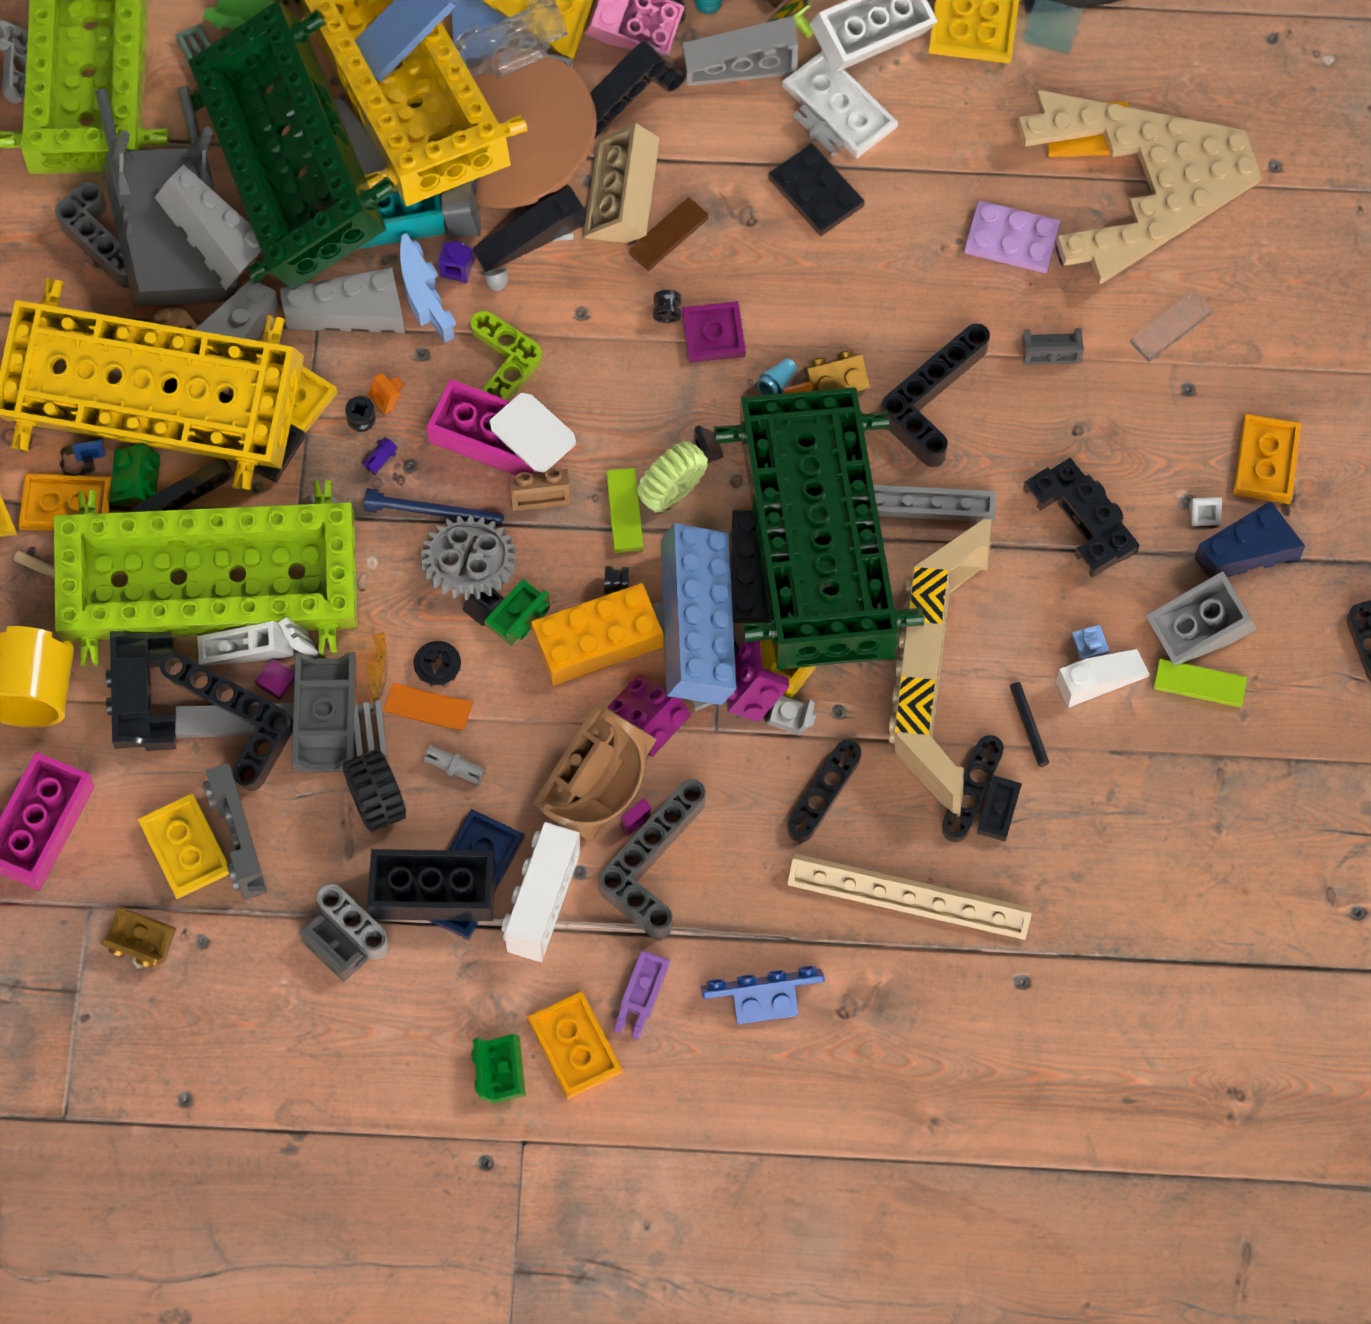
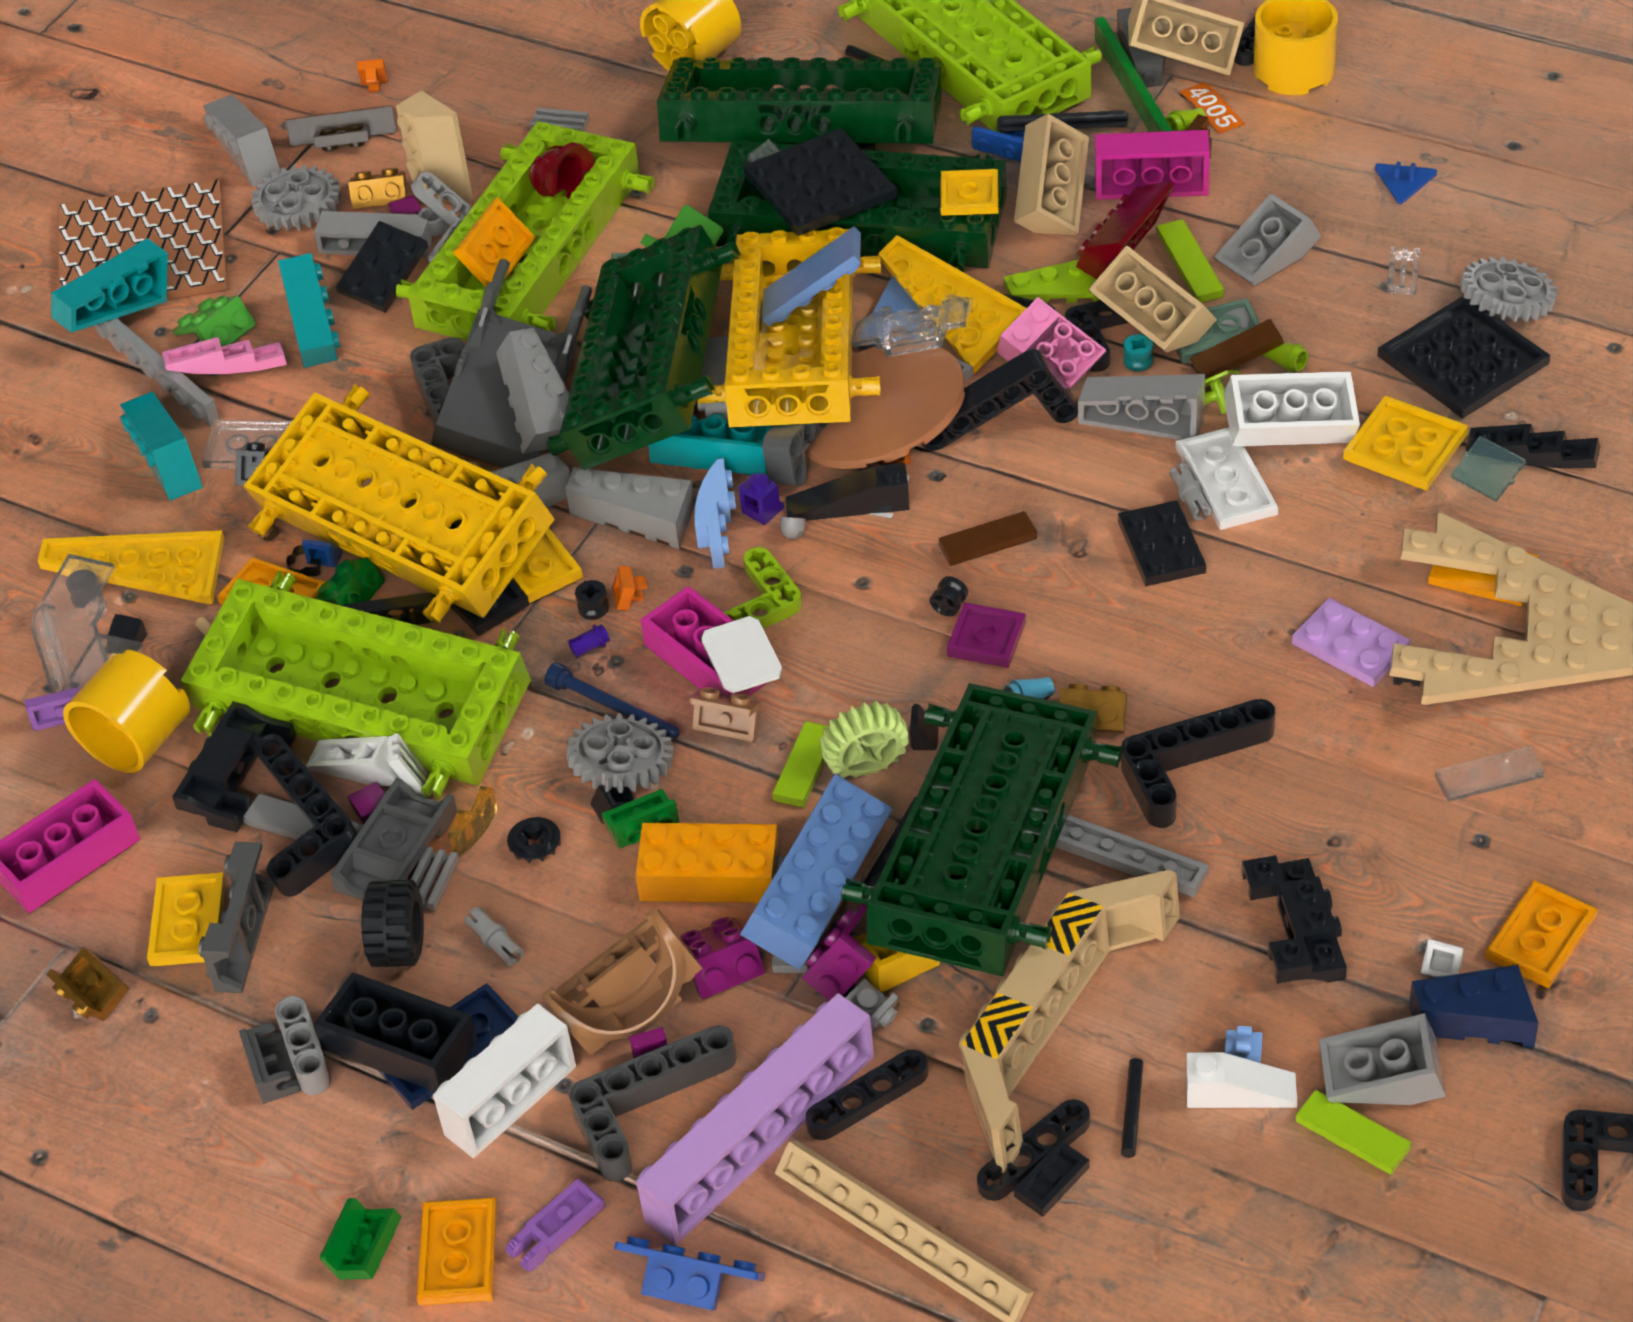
camera: 30 degrees right, 20 degrees down
(69, 67) = (492, 238): none -> light orange tile
(428, 707) = (502, 877): orange sticker -> none
(615, 579) = (755, 815): black wheel -> none
(622, 185) = (963, 482): tan slope -> none
(757, 847) = (754, 1119): none -> lavender brick
(1052, 348) = (1342, 754): dark grey hinge -> none

